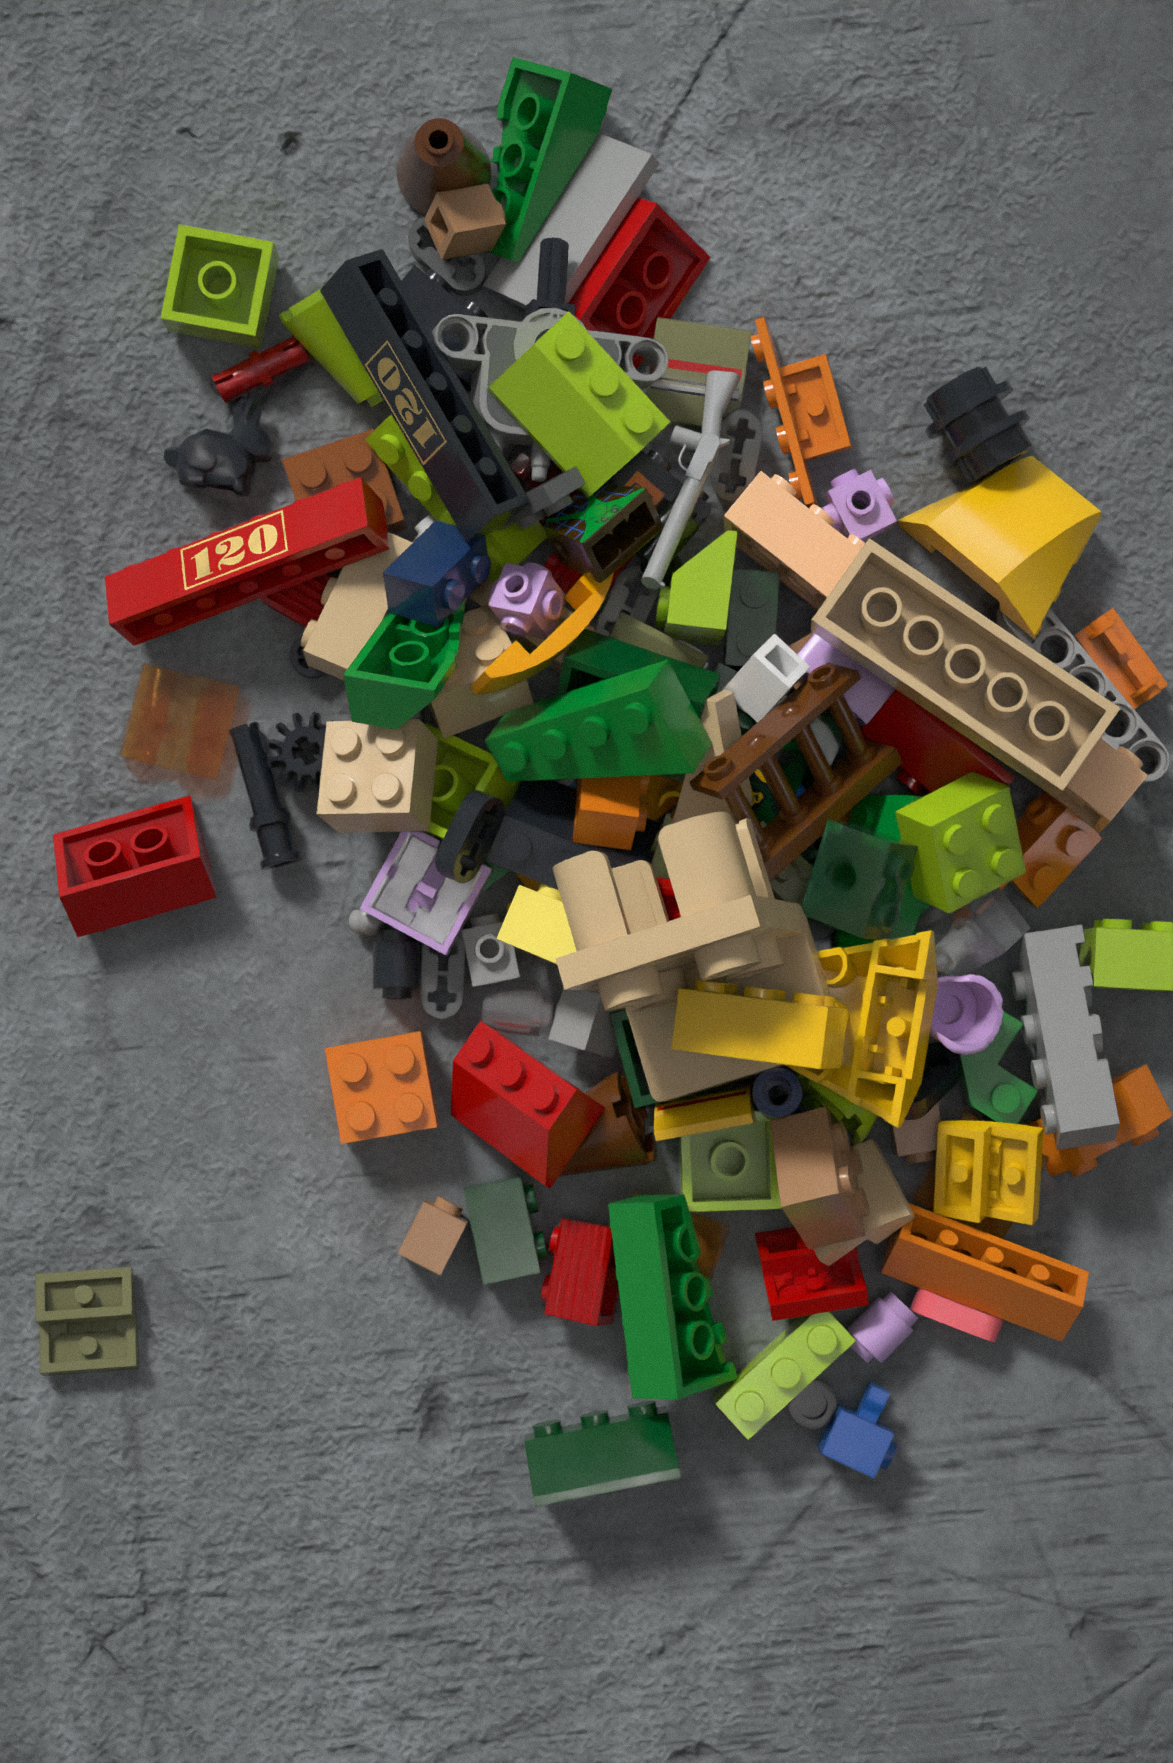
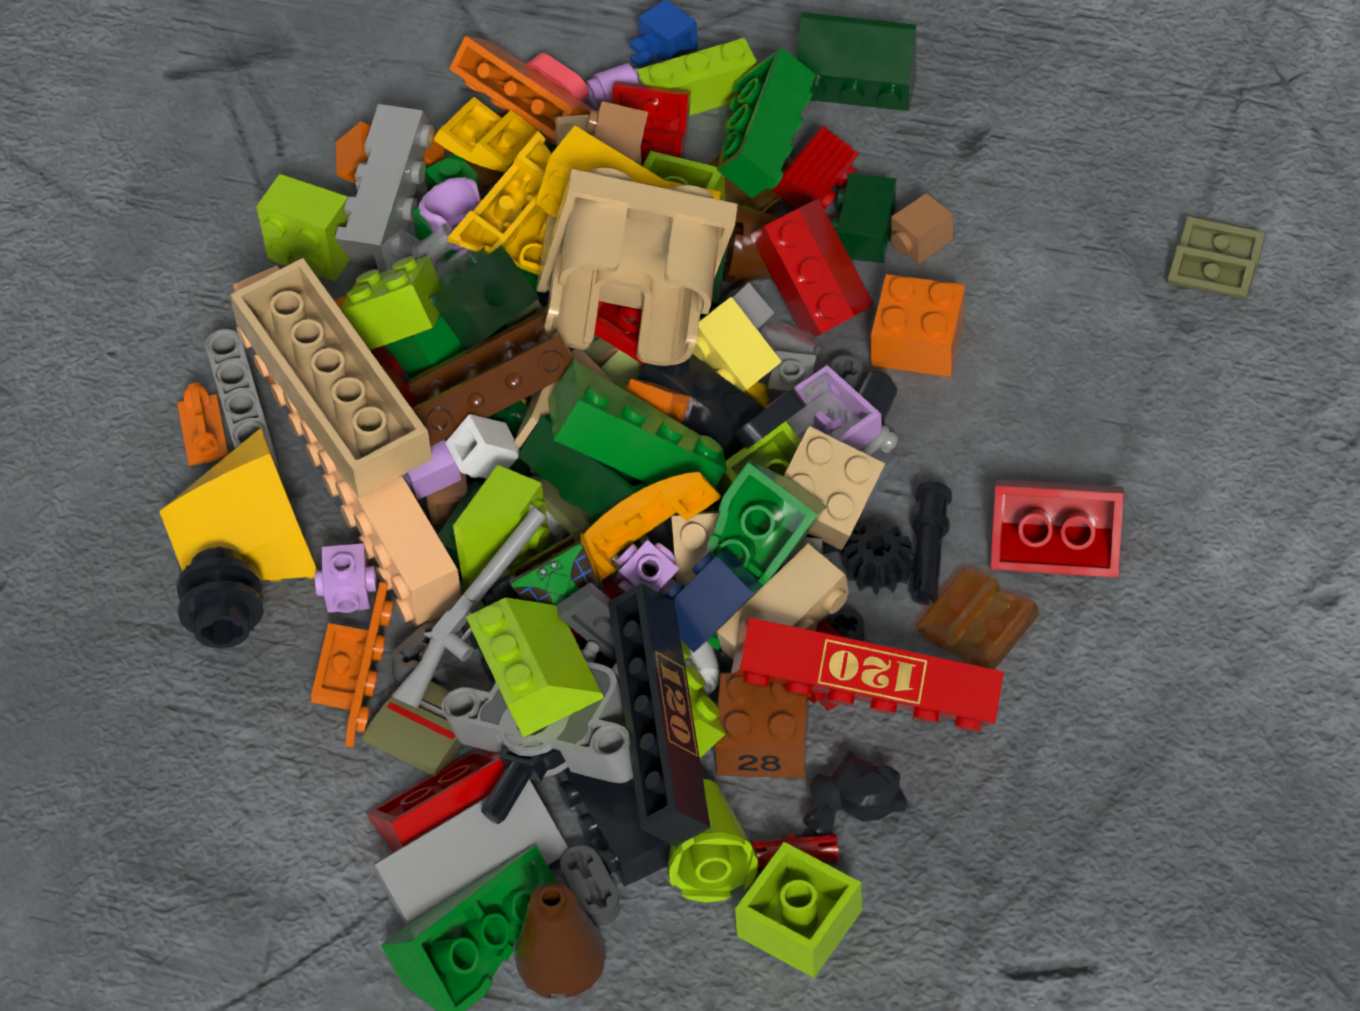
camera: 150 degrees left, 35 degrees down
(465, 221) = (563, 868): medium nougat brick -> none

